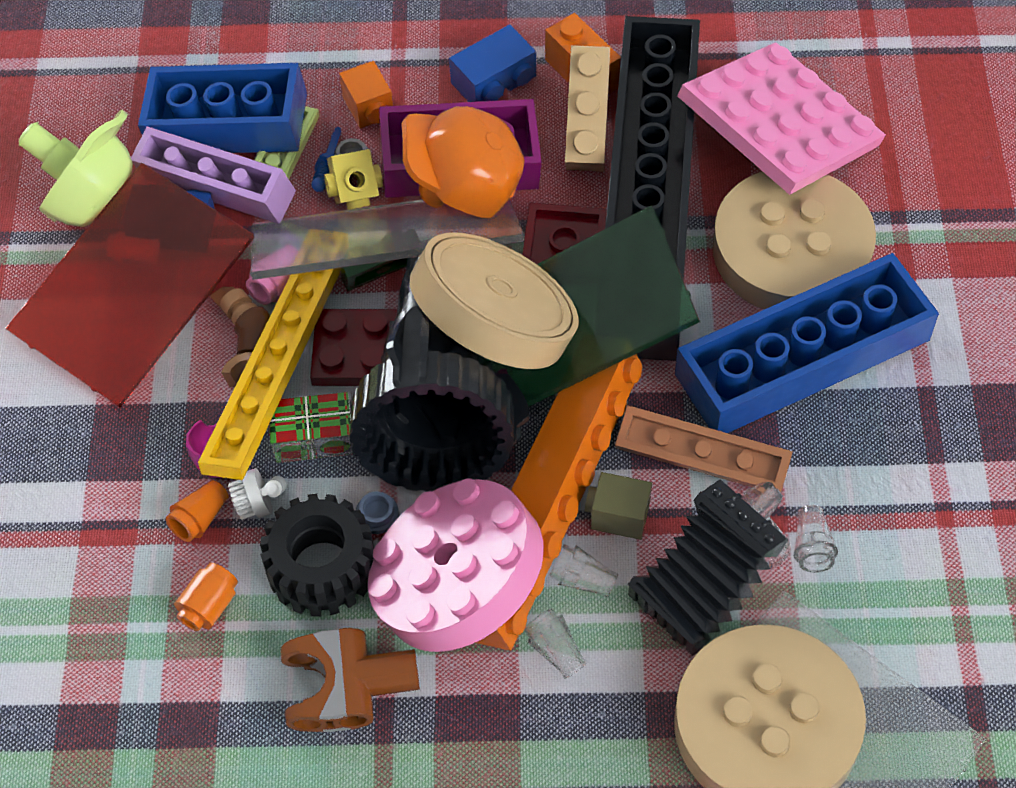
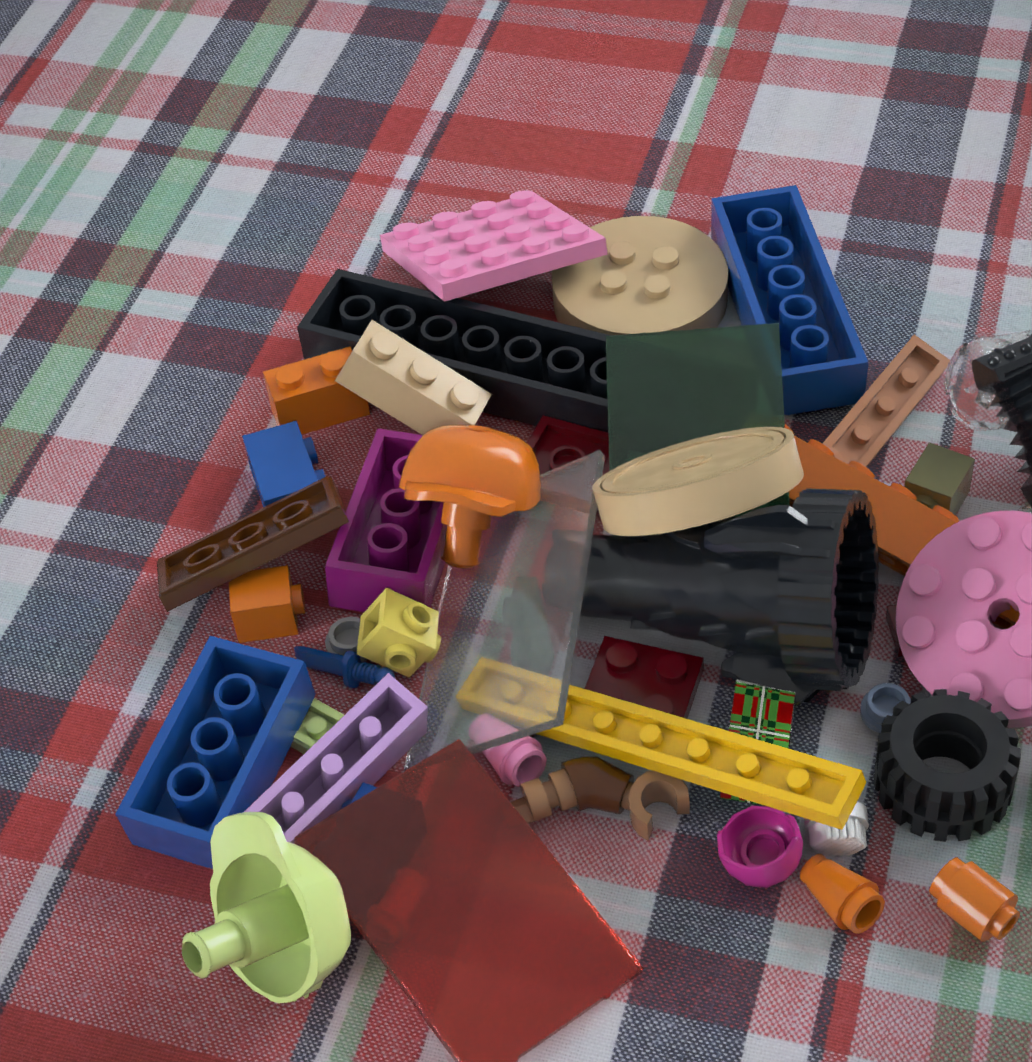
camera: 70 degrees left, 10 degrees down
(406, 63) = (249, 542): none -> reddish brown tile

